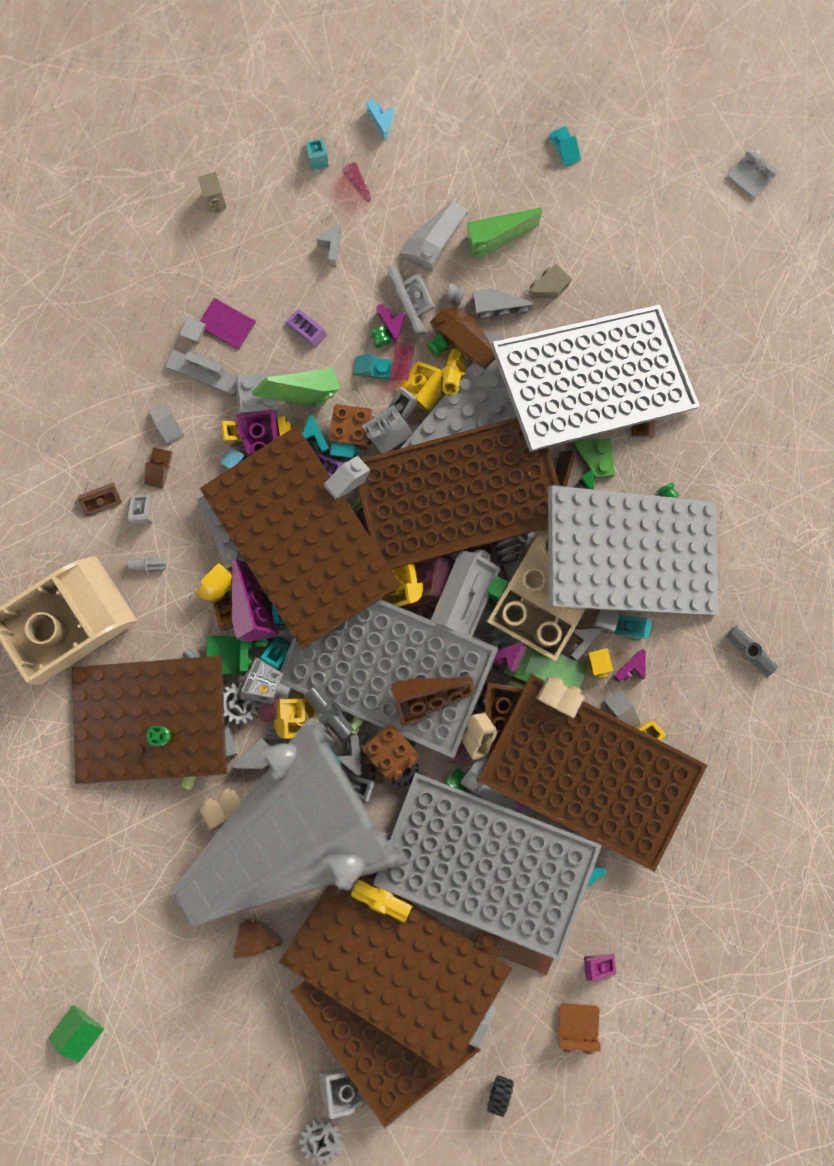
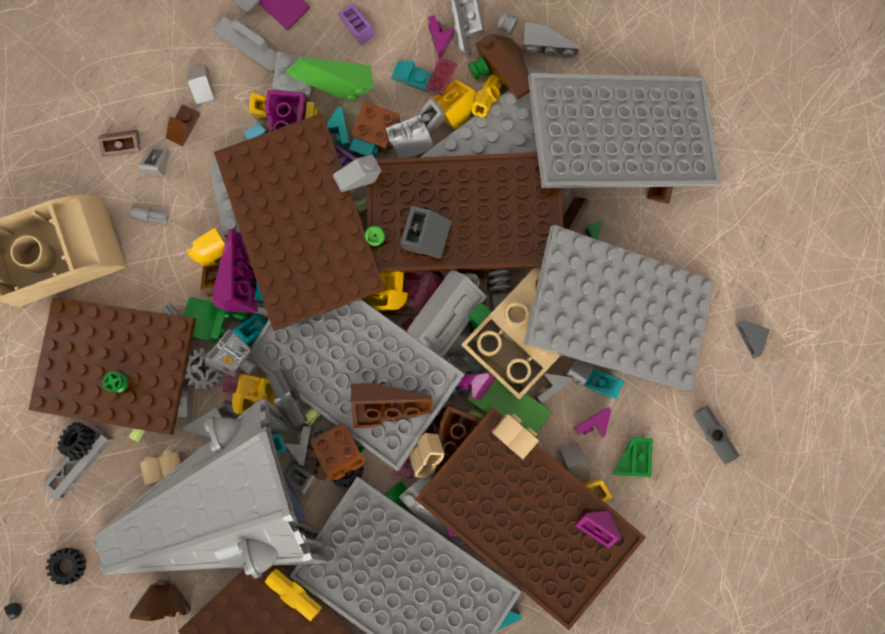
camera: 15 degrees right, 0 degrees up
(109, 982) = (13, 610): none -> black hinge
(138, 806) = (76, 441): none -> black tyre
(142, 826) = (80, 468): none -> light grey fence
(159, 918) = (54, 562): none -> black tyre
(378, 534) = (375, 235): none -> bright green tile
(380, 337) = (425, 47): green wheel -> none
(428, 520) = (425, 232): none -> dark grey slope
(525, 542) = (519, 277): light grey plate -> none
(551, 284) = (603, 33): dark tan slope -> none
(597, 456) = (609, 210): bright green wing -> none
(599, 663) = (563, 412): yellow brick -> none
(661, 765) = (600, 527): none -> magenta slope
(668, 491) = (671, 259): green wheel -> none
(680, 692) = (636, 458): none -> green wing
(766, 548) = (753, 337): none -> dark grey slope

